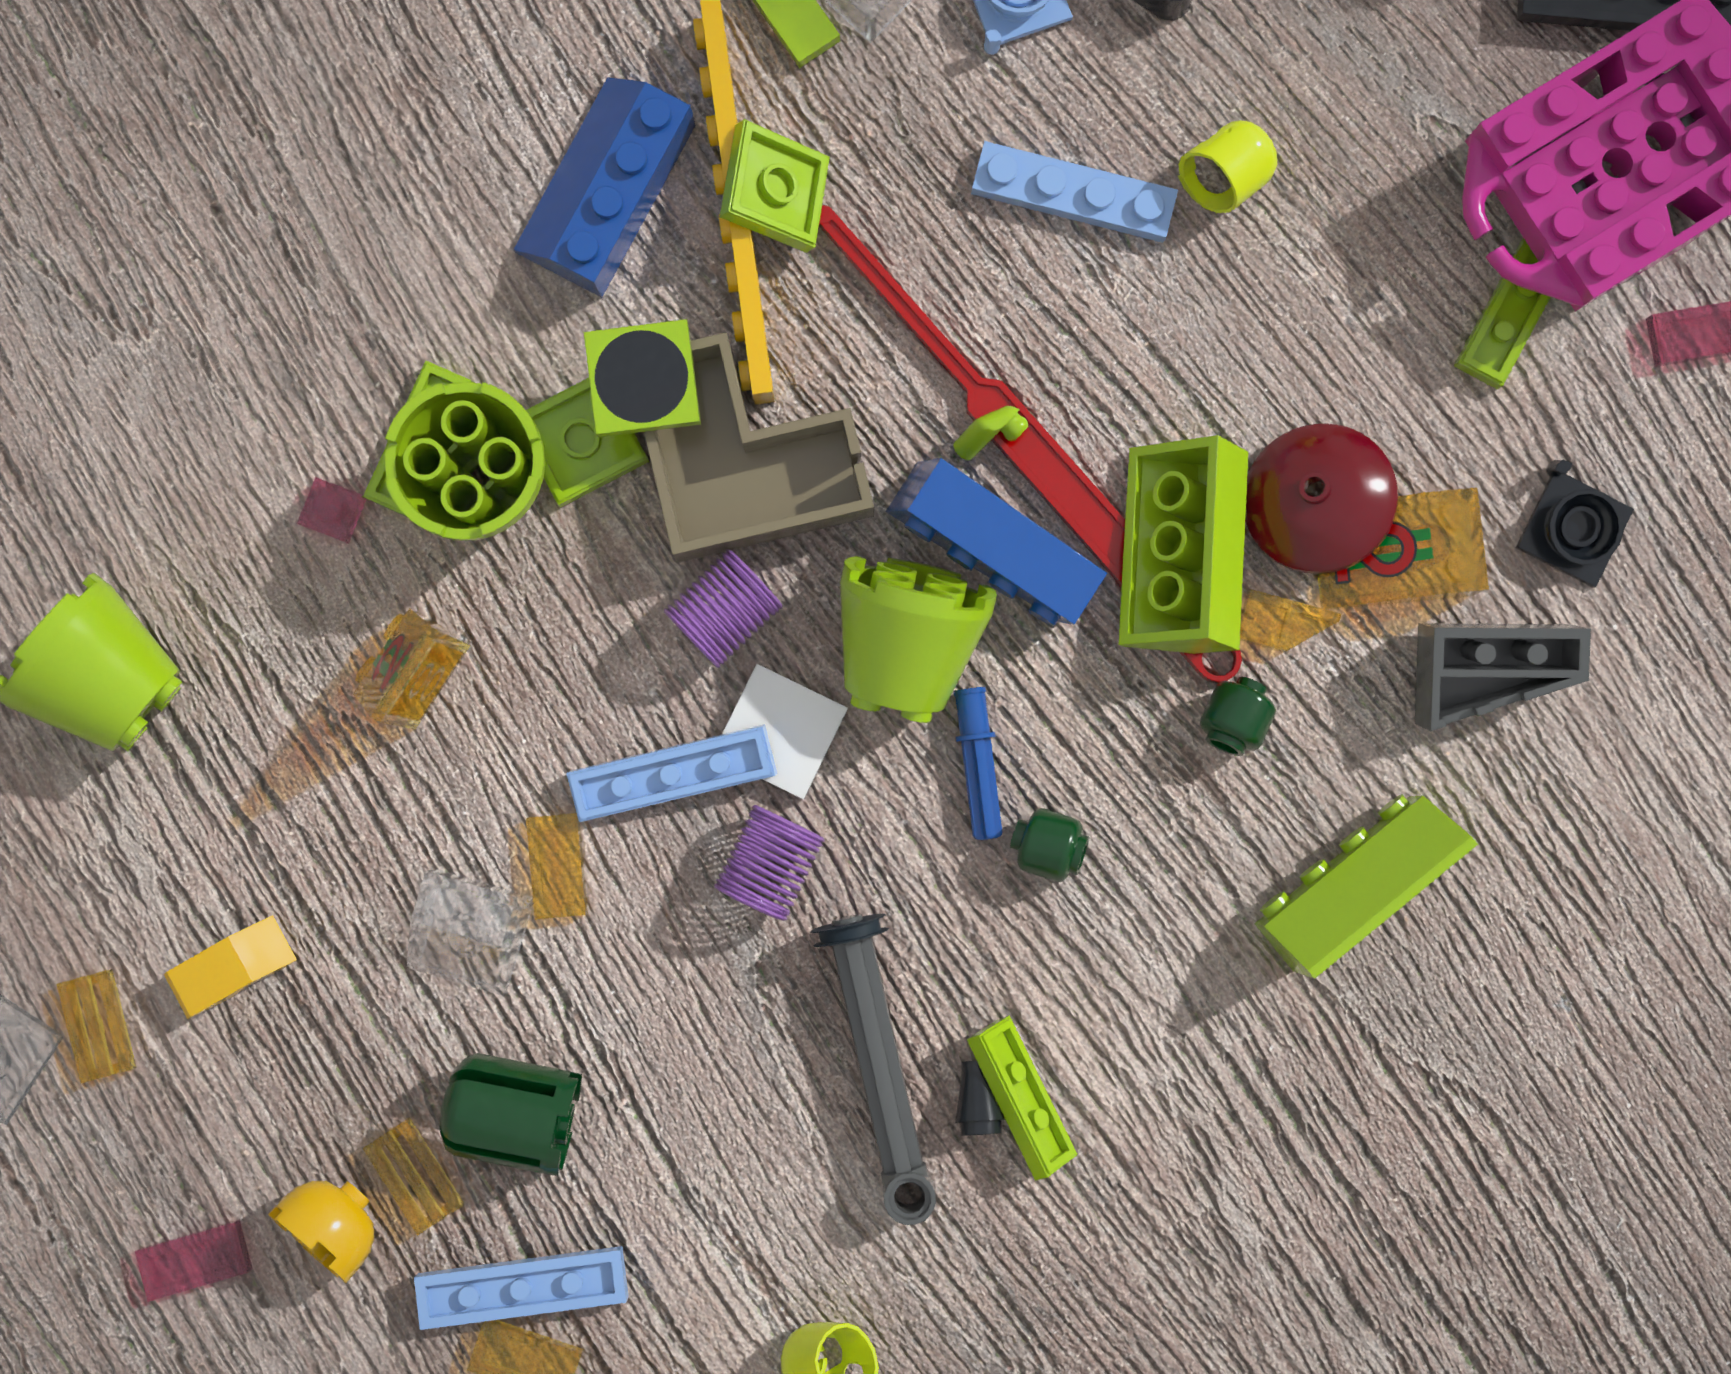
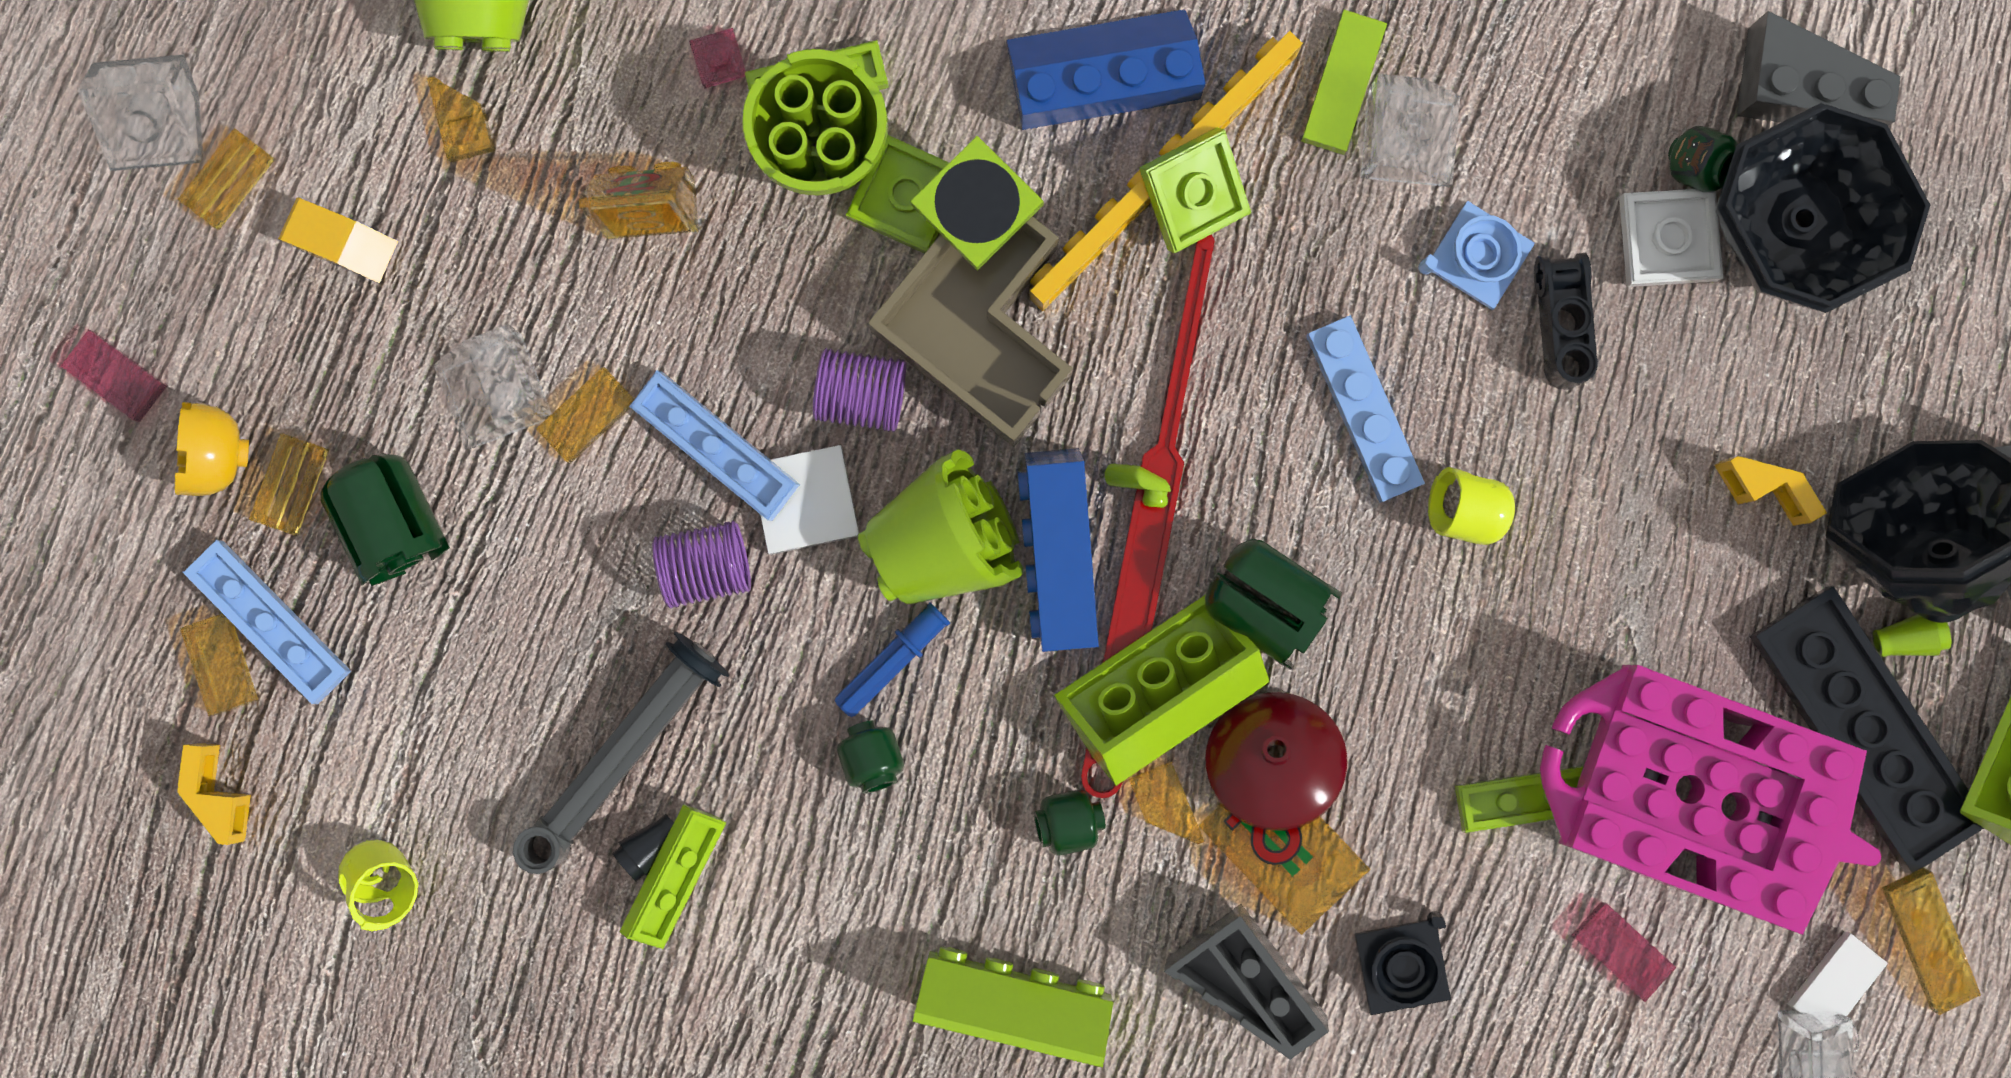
camera: 50 degrees right, 0 degrees up
(209, 779) = (460, 122): none -> clear yellow tile
(1173, 372) = (1282, 583): none -> dark green cylinder

